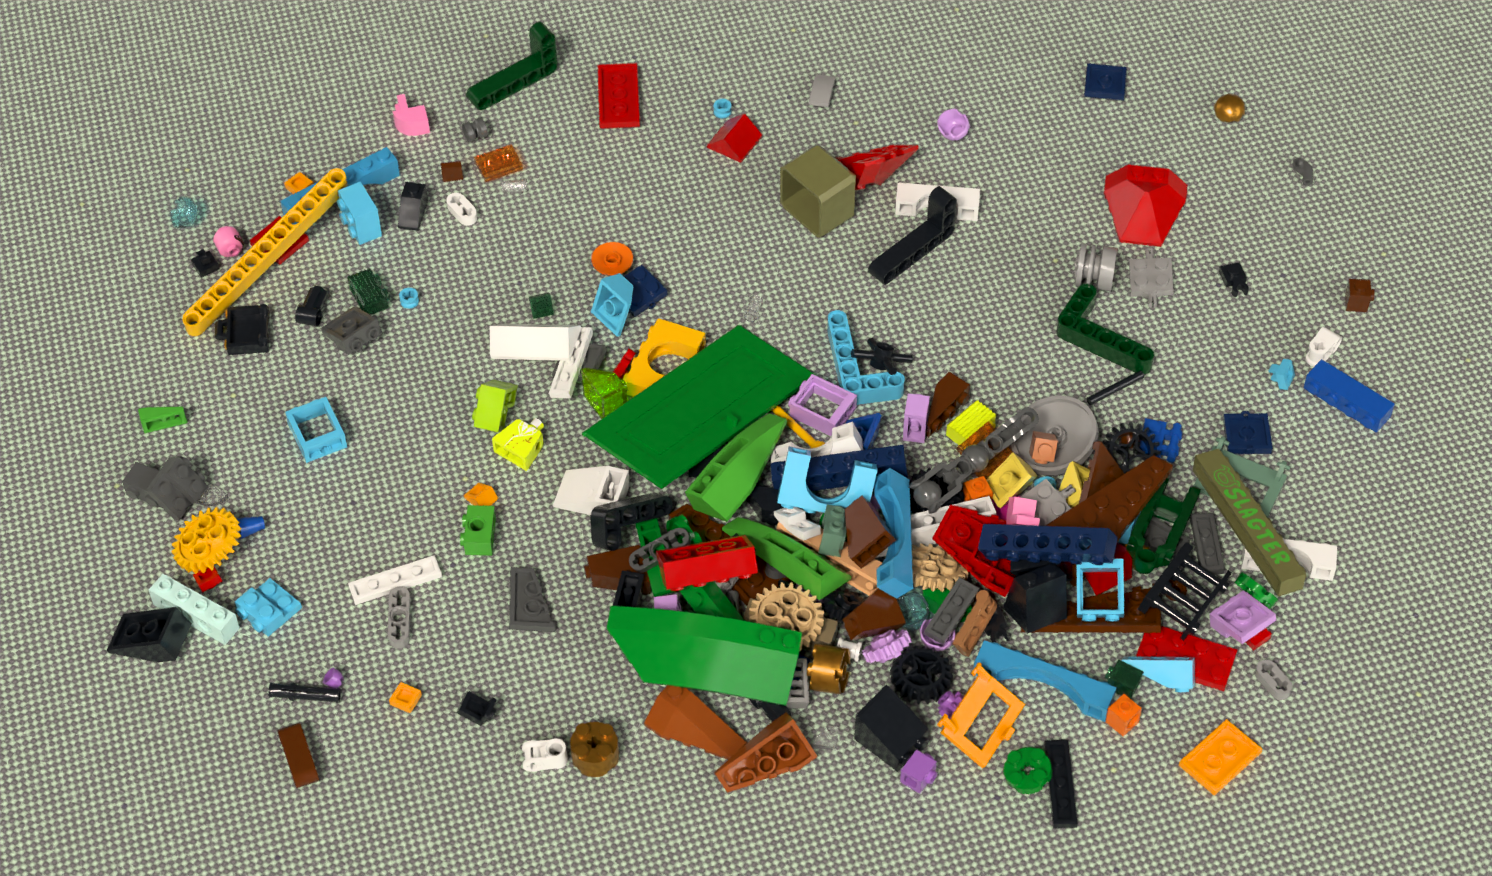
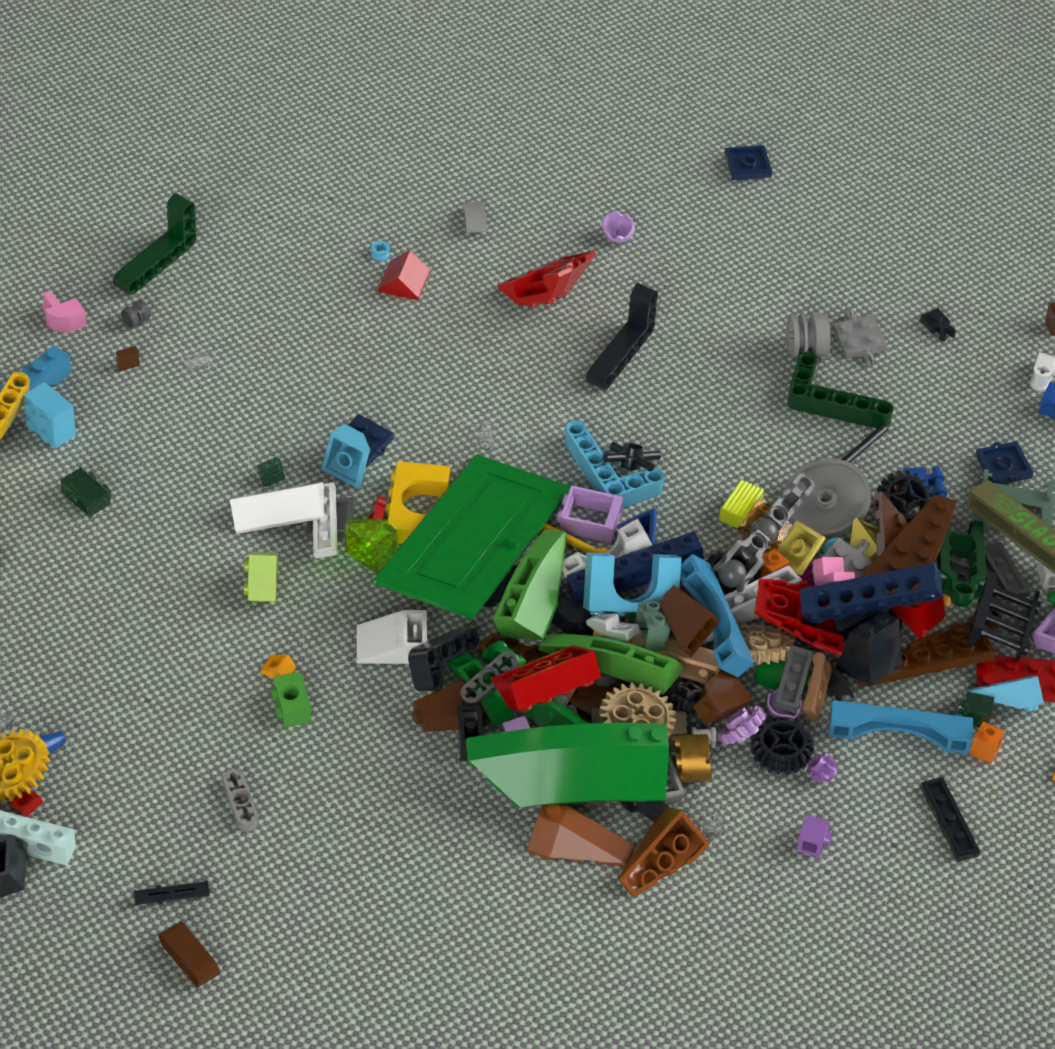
camera: 20 degrees left, 5 degrees down
(267, 607) = (99, 818): medium azure plate -> none
(311, 310) = (31, 521): black piece -> none
(314, 448) = (94, 650): medium azure window -> none
(333, 678) = (195, 872): medium lavender hinge -> none
(352, 330) = (84, 531): dark grey plate -> none
(404, 576) = (214, 768): white tile -> none
(405, 697) = (278, 875): light orange plate -> none
(411, 302) = (125, 486): medium azure bush -> none
(412, 206) = (99, 399): black slope -> none
(458, 211) = (148, 393): white beam -> none
(476, 708) = (356, 870): black bracket -> none
(498, 163) = (172, 342): clear orange plate -> none
(520, 442) = (300, 607): neon yellow torso -> none
(526, 602) = (365, 760): dark grey wing -> none
(542, 754) = (440, 899): white piece -> none
(594, 748) = (490, 882): pearl gold brick -> none
(612, 258) = (326, 413): orange dish -> none
(618, 95) = (270, 256): red plate -> none
(817, 190) = (513, 310): olive plate -> none
(890, 729) = (774, 802): black slope -> none
(914, 197) = (604, 302): white arch -> none
(914, 609) = (756, 686): clear light blue hair -> none
(916, 418) = (689, 507): lavender brick -> none
(947, 398) = (708, 487): reddish brown slope -> none
(968, 709) = (841, 768): light orange piece -> none
(1023, 758) = (912, 800): green plate -> none
(1043, 447) = (822, 510): nougat brick -> none
(1109, 615) = (922, 607): medium azure window -> none
(1144, 203) = (826, 268): red wedge -> none
(1229, 108) = (875, 167): pearl gold hair -> none
(1282, 374) = (1016, 402): medium azure tile -> none
(1304, 169) = (966, 212): dark grey arm -> none

